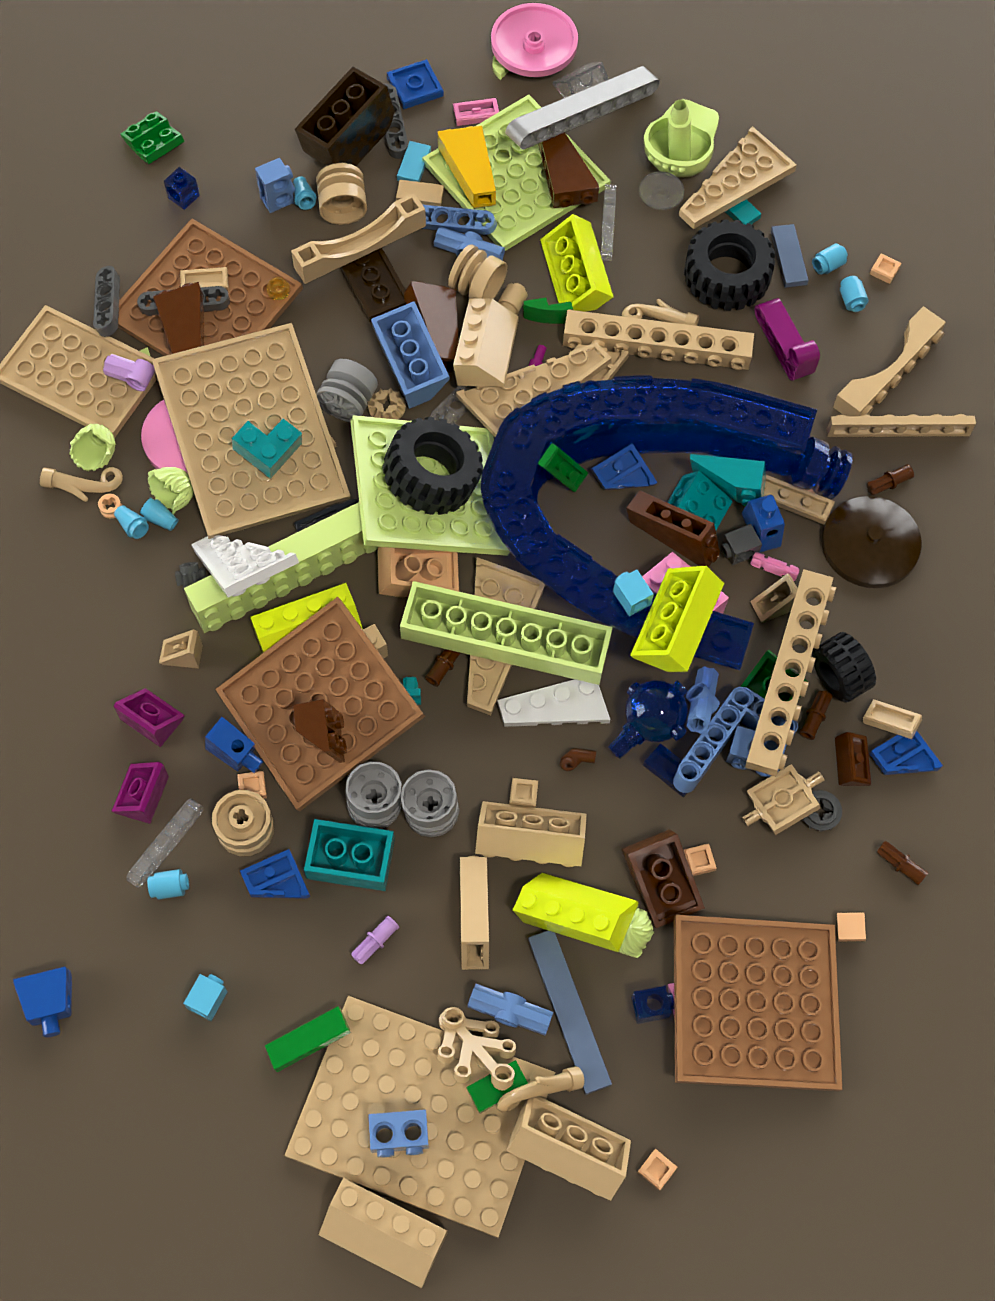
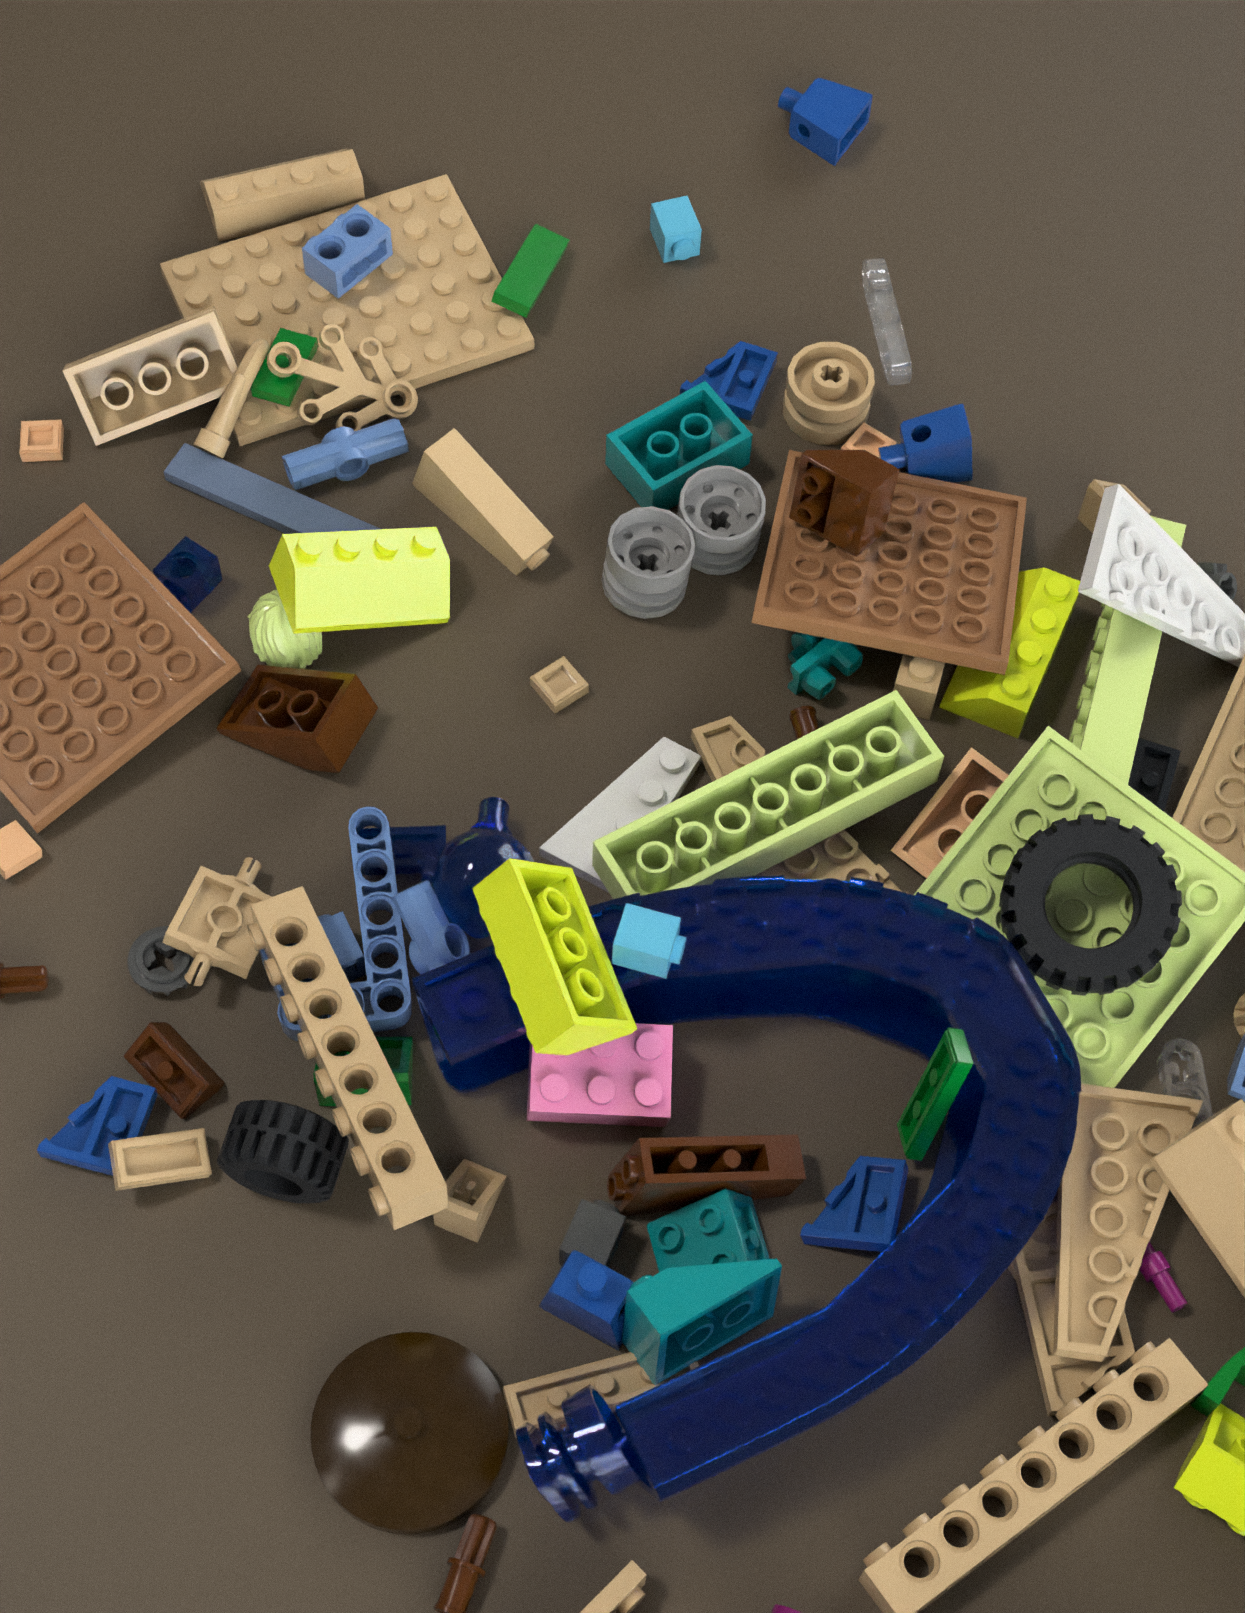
camera: 135 degrees right, 5 degrees down
(141, 791) = (968, 346): magenta slope -> none
(149, 715) = (1060, 413): magenta slope -> none
(168, 884) = (835, 290): medium azure brick -> none
(374, 940) = (563, 410): lavender axle -> none
(531, 834) = (503, 640): tan slope -> none
(575, 757) = (539, 770): reddish brown arm -> none
(663, 313) = (1074, 1554): tan plant -> none
(700, 859) = (272, 780): light nougat tile -> none
(774, 566) = (516, 1257): bright pink axle -> none
(815, 715) = (273, 1078): reddish brown axle -> none

